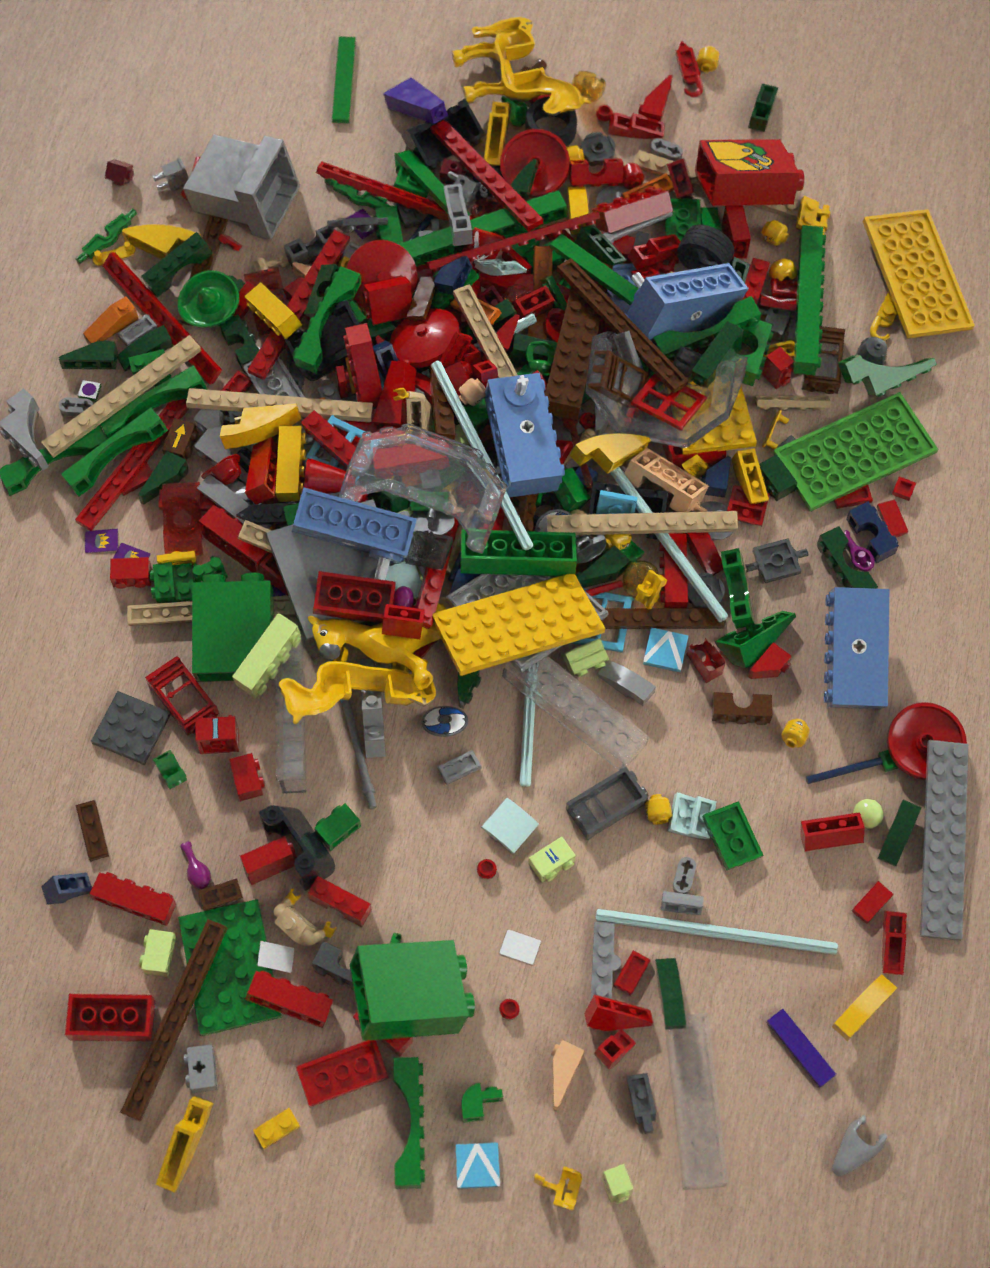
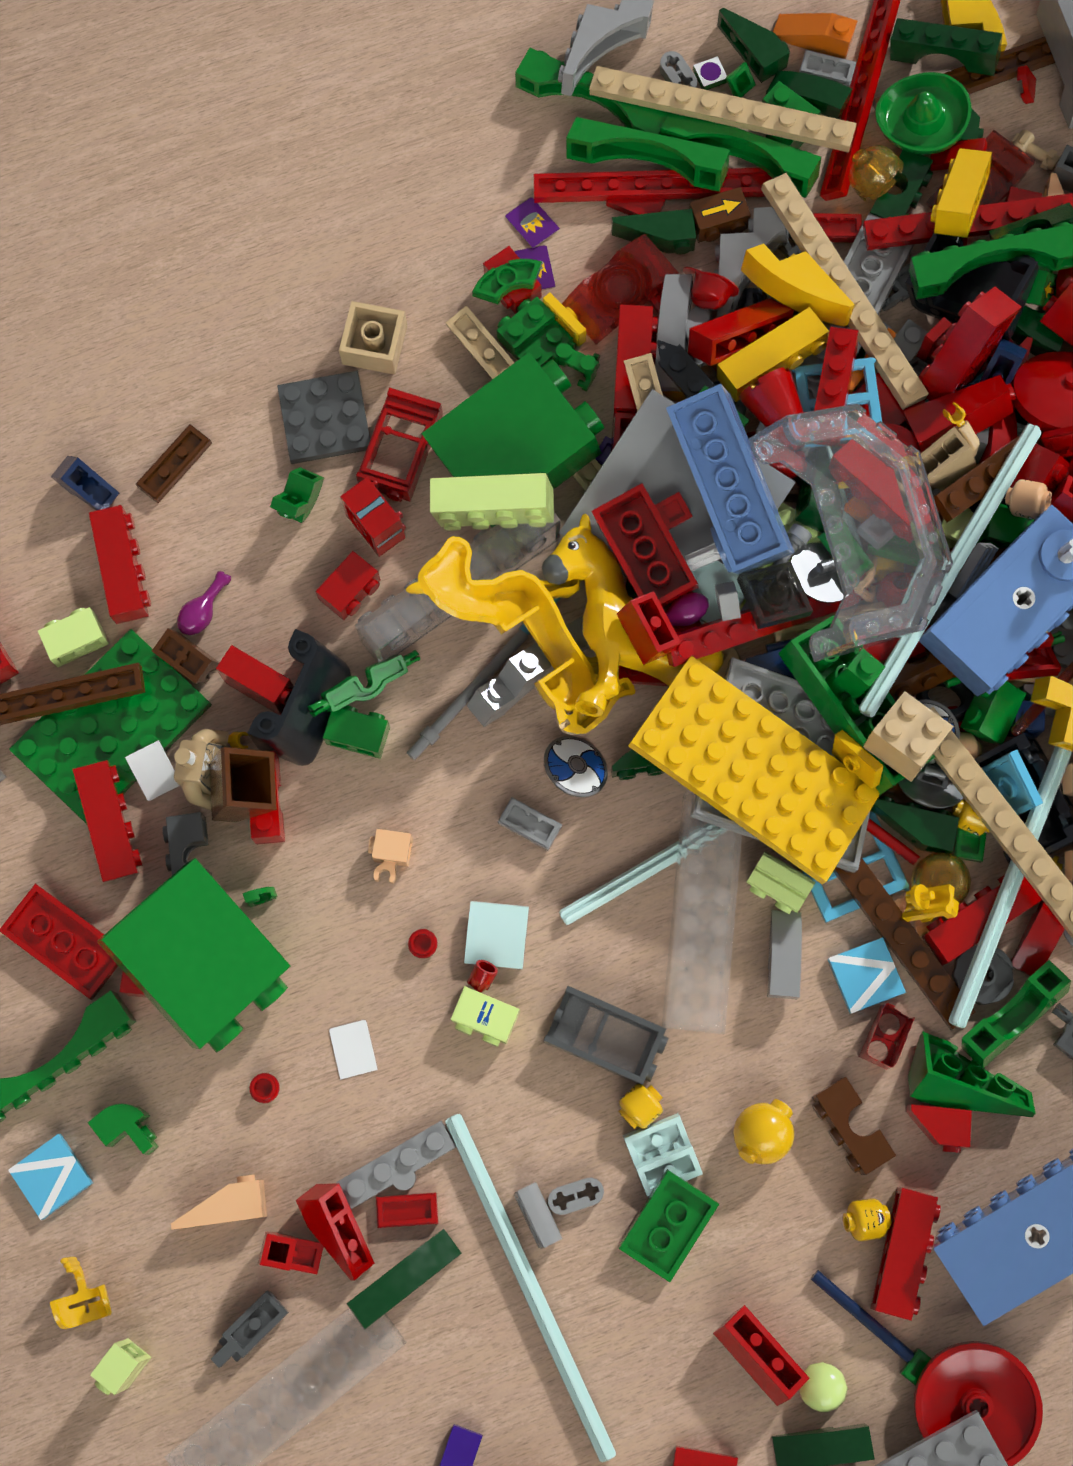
camera: 60 degrees right, 10 degrees up
(106, 667) = (373, 337): none -> tan brick
(108, 378) = (740, 80): none -> green slope
(130, 572) = (507, 277): none -> green tile
(221, 346) = (873, 171): none -> clear yellow cylinder
(313, 811) = (352, 690): none -> green piece
(327, 902) = (242, 784): none -> reddish brown slope
(342, 567) = (673, 510): none -> red plate
(414, 575) = (727, 601): none -> light grey piece
(421, 851) = (390, 849): none -> light nougat brick
(488, 443) = (973, 568): none -> light grey tile
(505, 535) = (859, 673): none -> green brick
(528, 846) = (482, 975): none -> red hose
(549, 570) = (857, 759): none -> yellow plate
(557, 534) = (907, 736): none -> tan brick
(715, 754) = (764, 1132): none -> yellow brick
(825, 726) = (904, 1254): none -> red brick

